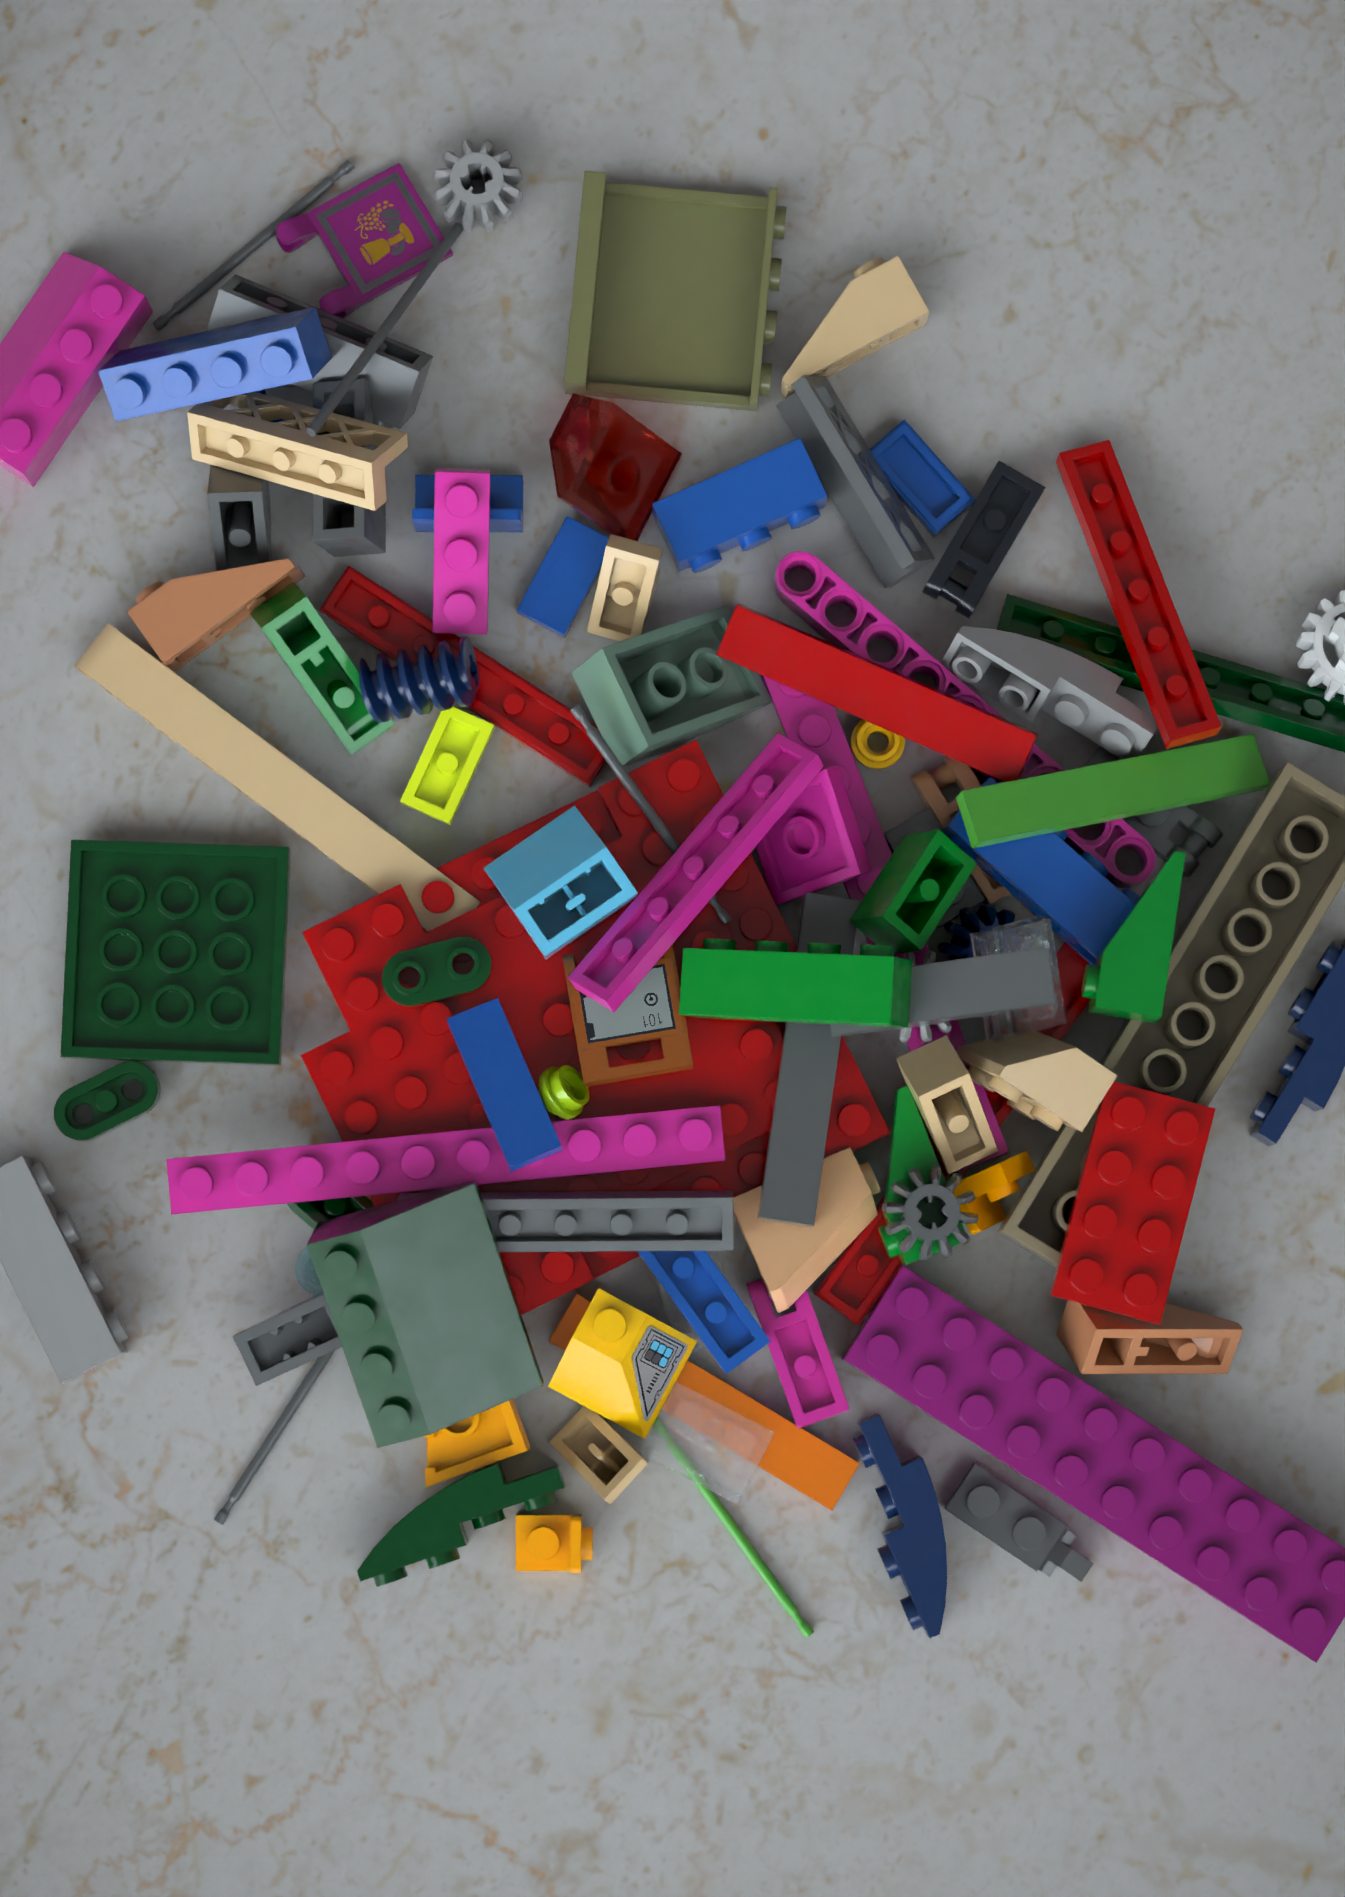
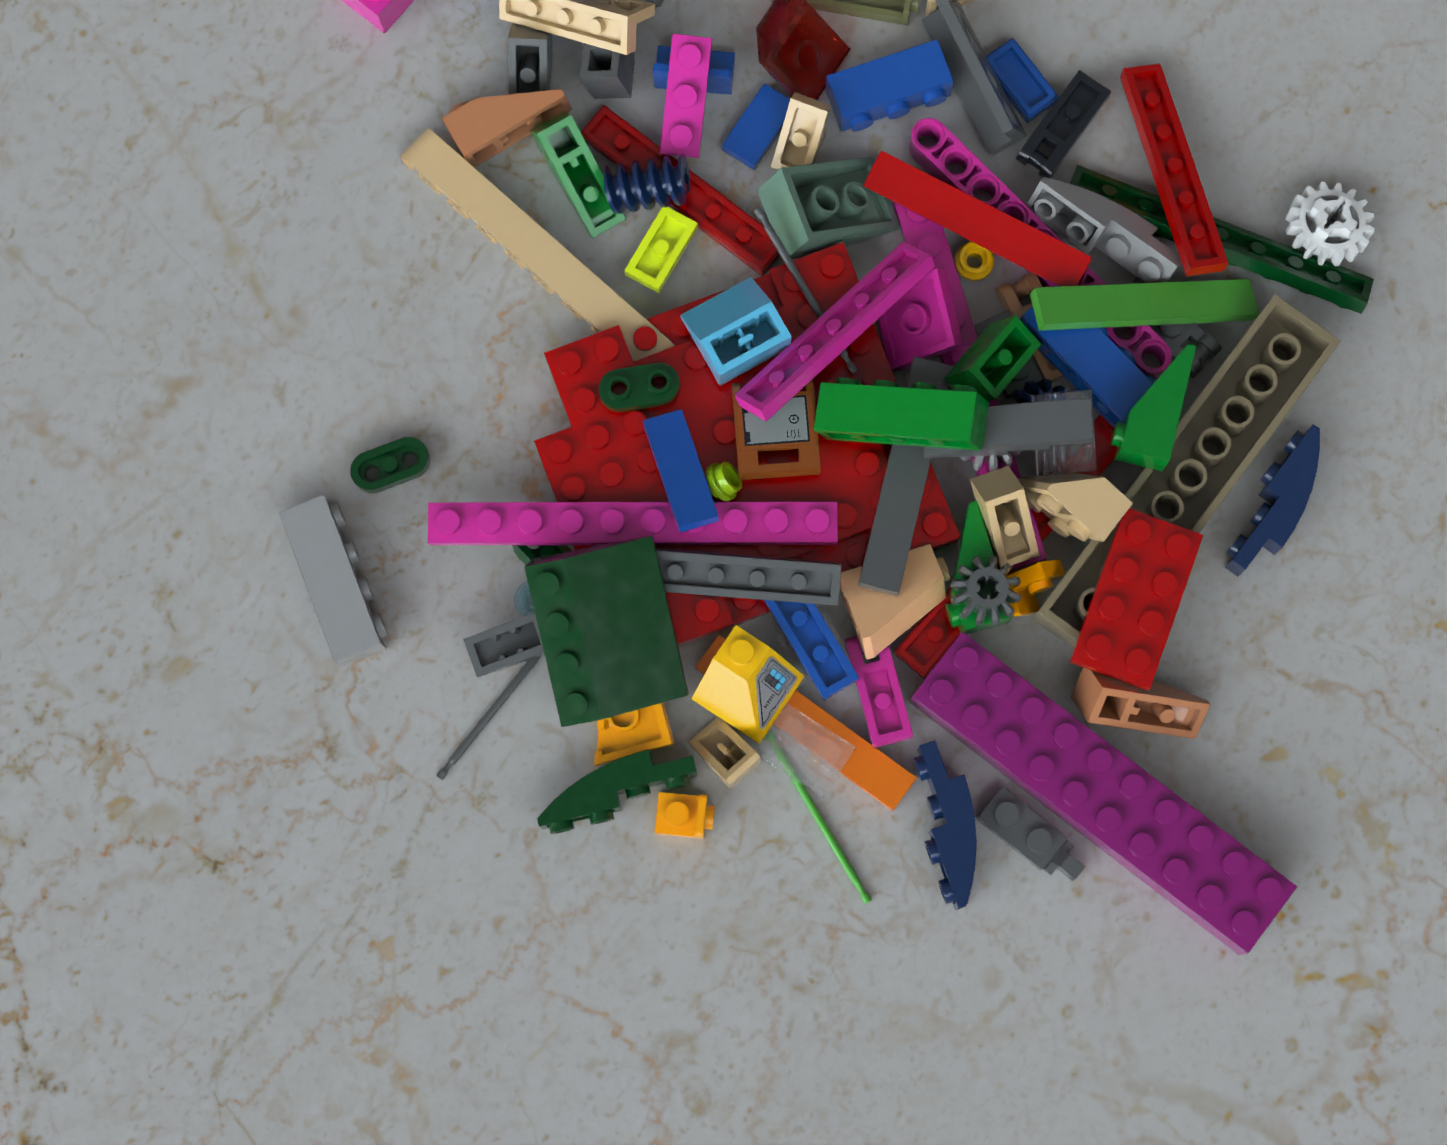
camera: 10 degrees right, 5 degrees down
(175, 952) = (451, 364): dark green plate -> none

